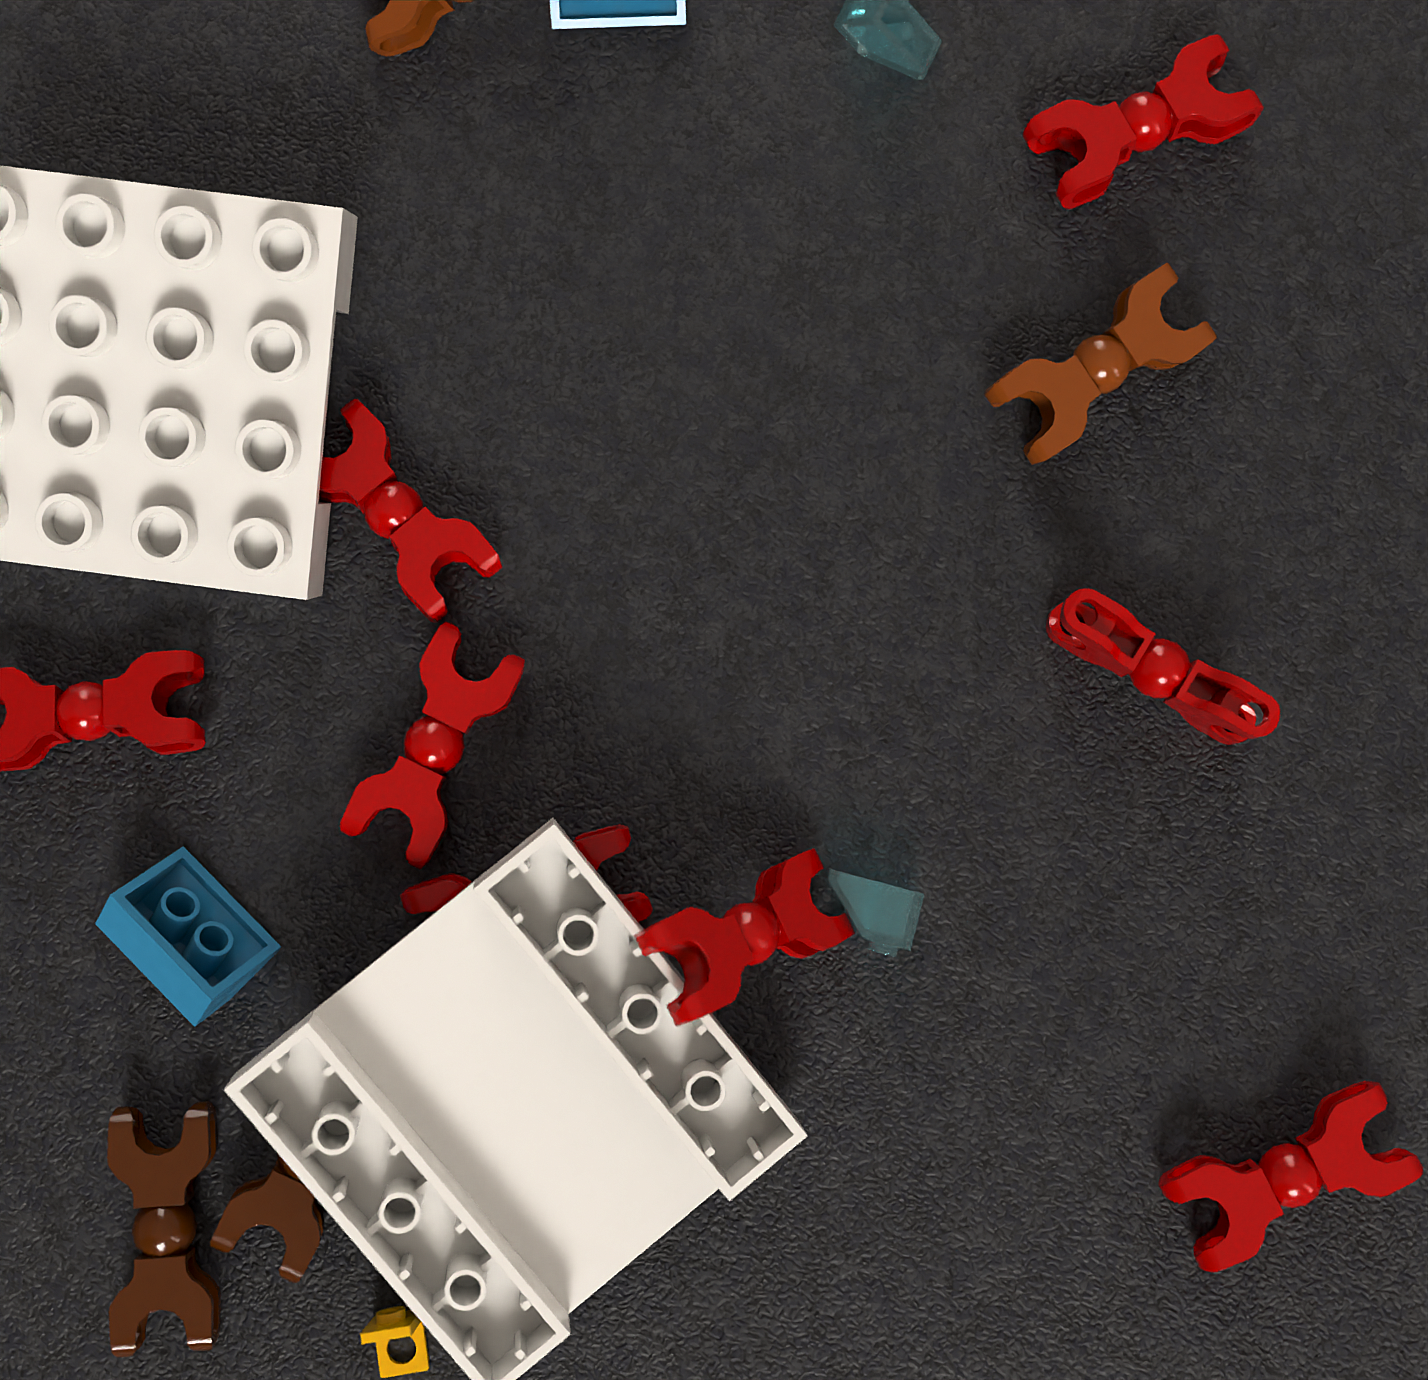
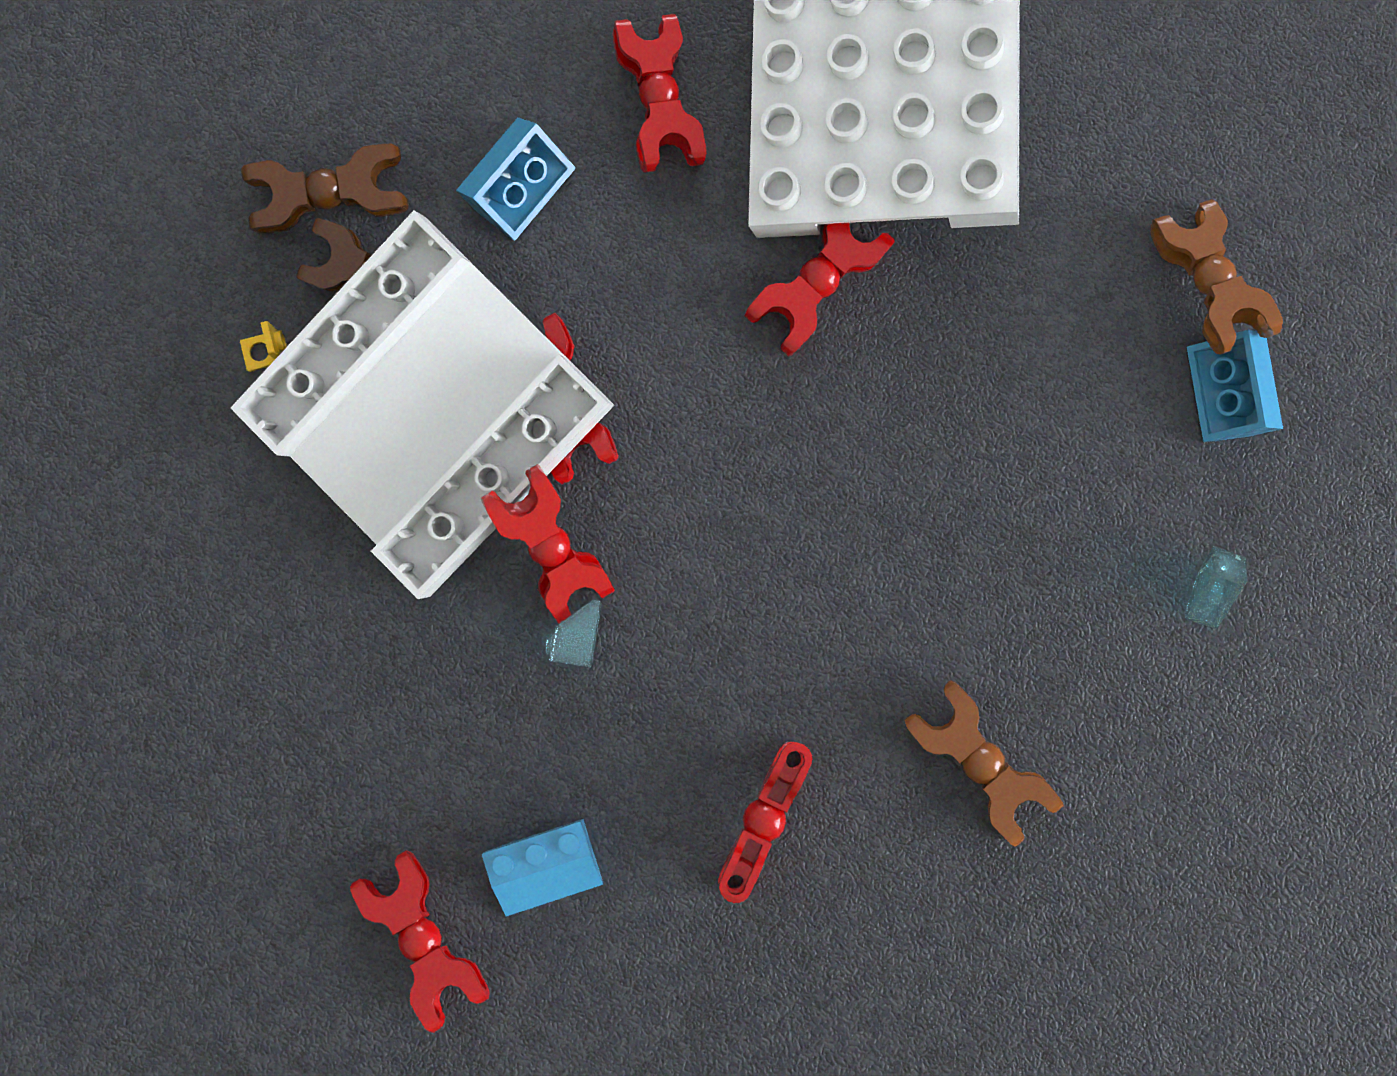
camera: 80 degrees right, 0 degrees up
(433, 745) = (659, 323): red piece -> none
(1108, 134) = (1172, 780): red piece -> none
(1195, 990) = (542, 867): none -> dark azure slope

